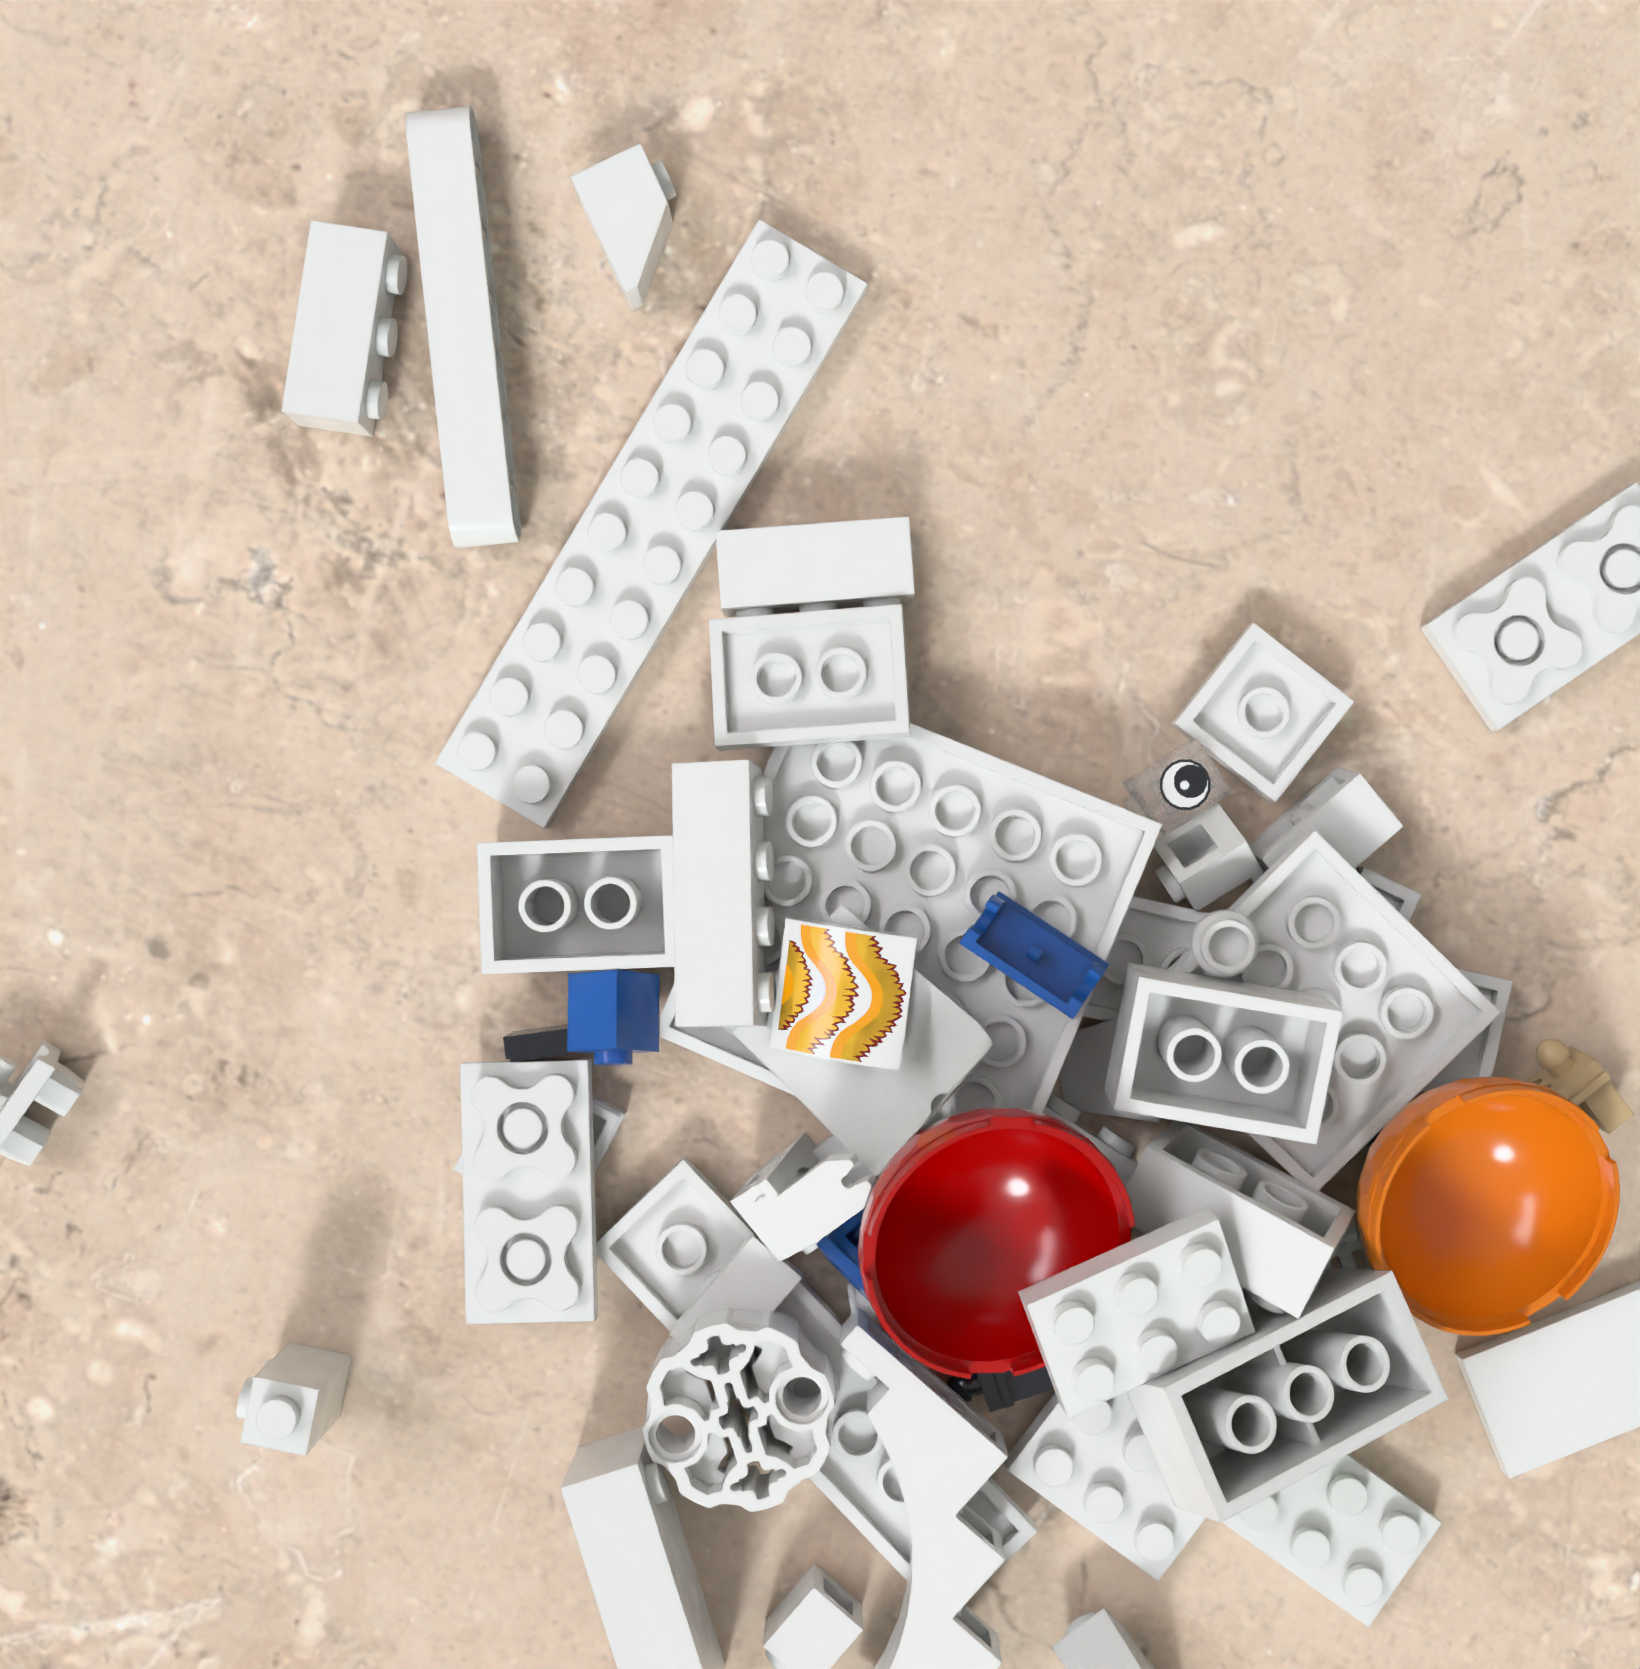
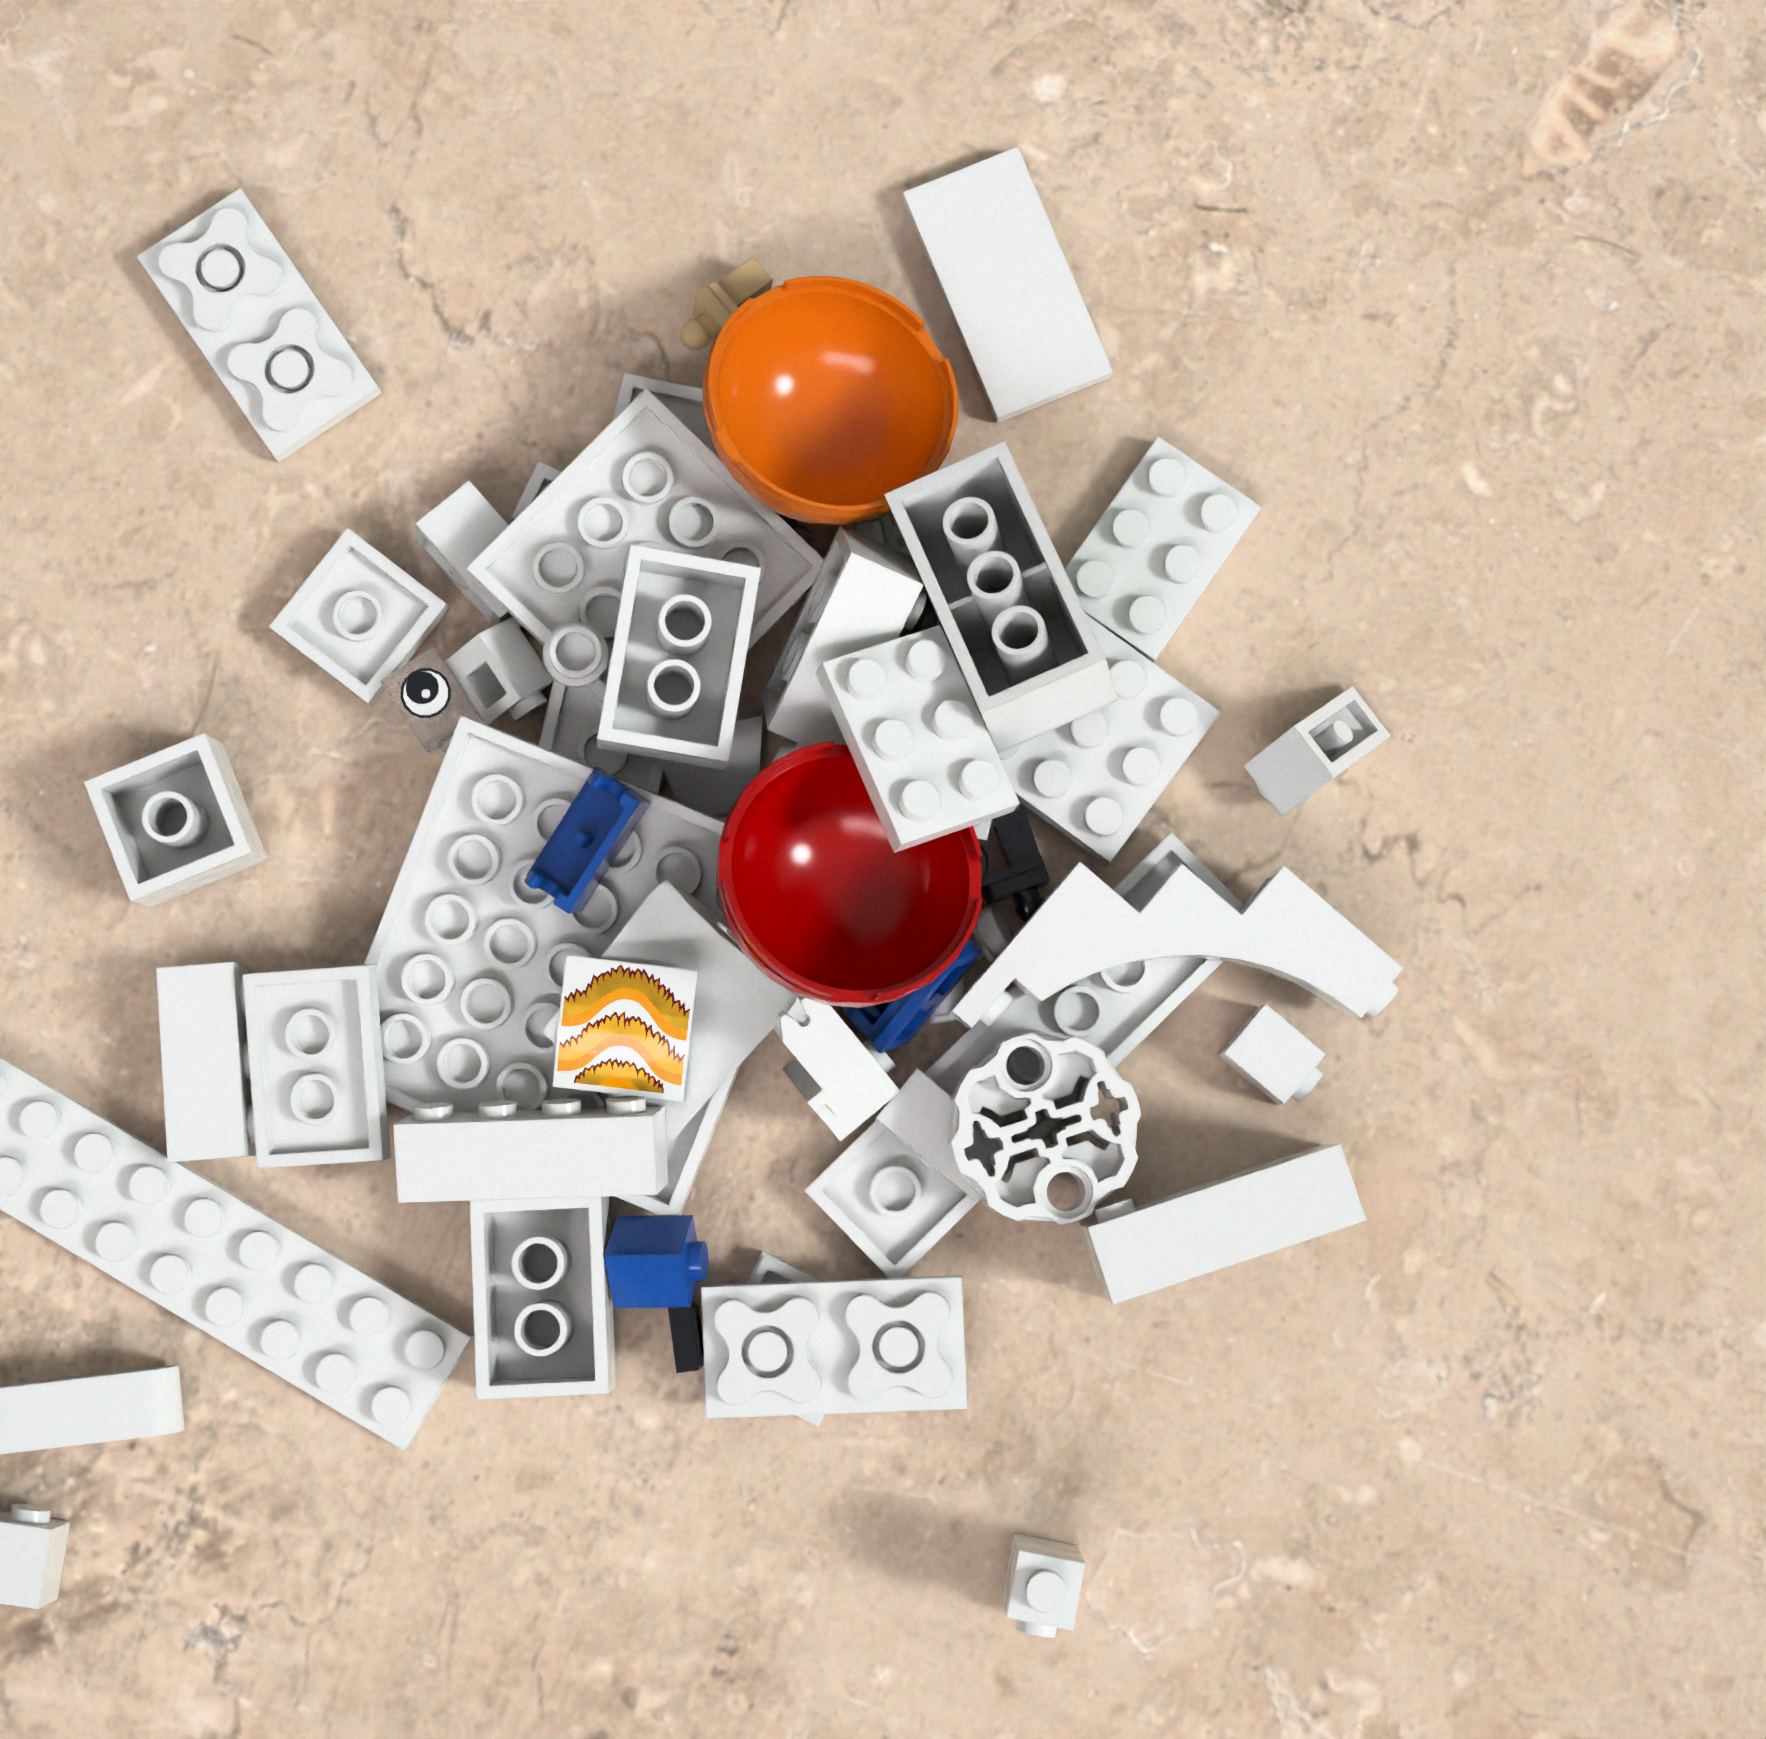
camera: 85 degrees left, 5 degrees down
(1057, 532) = (175, 820): none -> white brick

